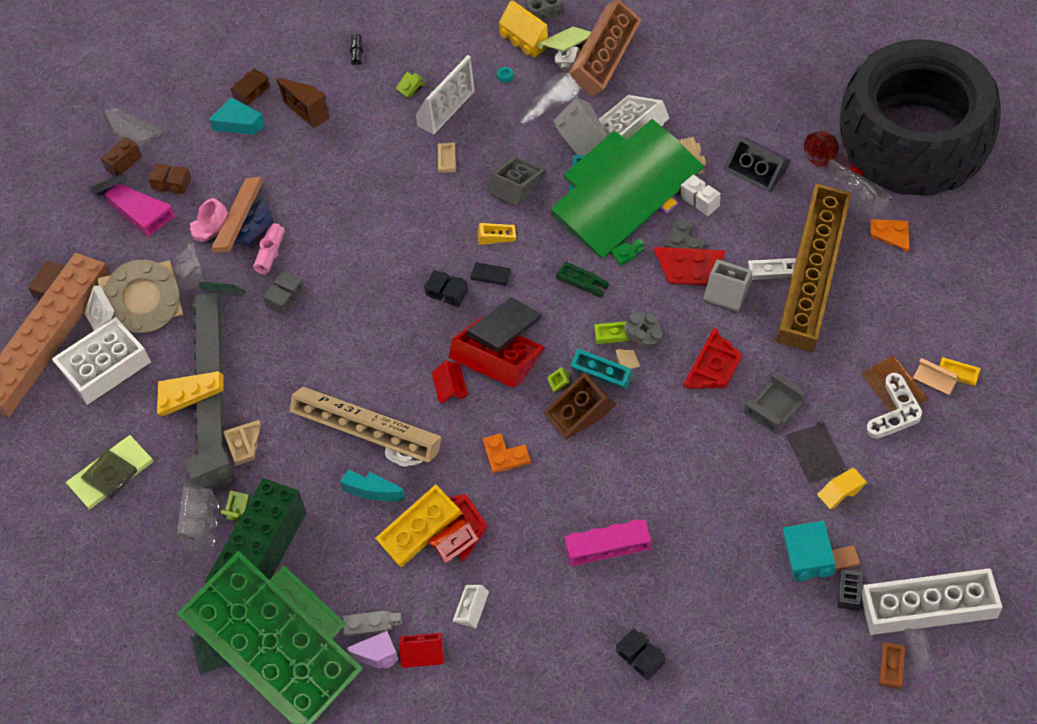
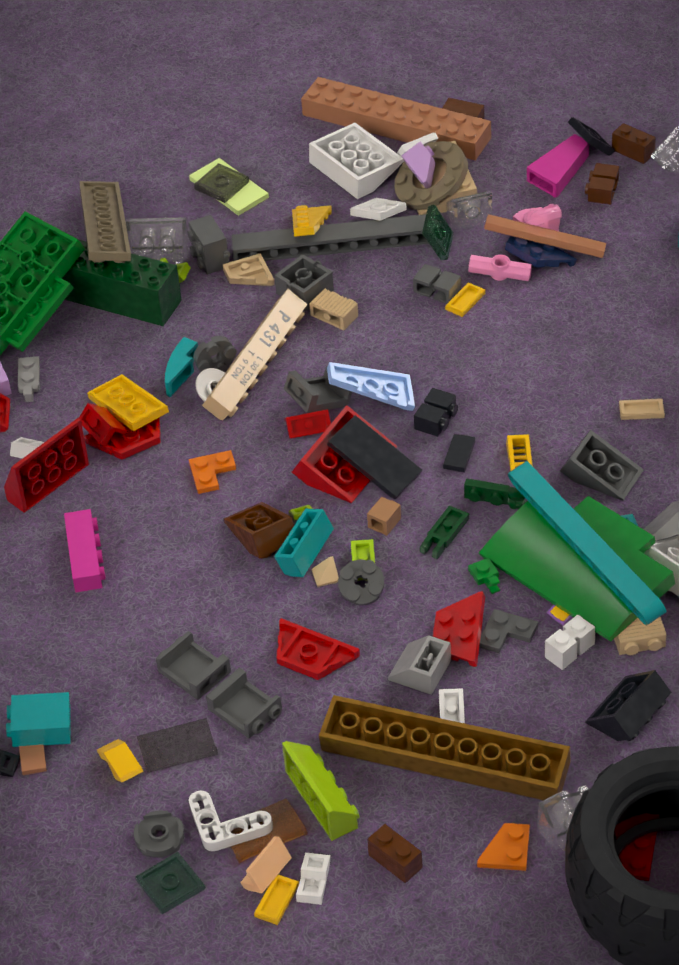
camera: 90 degrees right, 10 degrees down
(133, 298) = (421, 163): none -> lavender slope
(176, 339) = (378, 209): none -> white tile
(176, 555) = (104, 222): none -> dark tan plate
(271, 390) = (304, 278): none -> dark grey brick
(307, 368) = (334, 309): none -> tan brick
(309, 277) = (465, 299): none -> yellow tile
(368, 451) = (221, 361): none -> dark grey plate
(415, 328) = (373, 383): none -> light blue wing
(417, 370) = (316, 393): none -> dark grey panel
(512, 577) = (47, 467): none -> red slope
(543, 245) = (494, 493): none -> dark green hinge
(566, 318) = (384, 516): none -> medium nougat brick
(616, 172) = (587, 543): none -> teal beam
(737, 444) = (192, 666): none -> dark grey panel
(861, 344) = (319, 790): none -> lime slope
(910, 464) = (159, 846): none -> dark grey plate
(912, 294) = (395, 853): none -> reddish brown brick
(930, 348) = (313, 878): none -> white slope
(954, 443) = (170, 882): none -> clear green tile

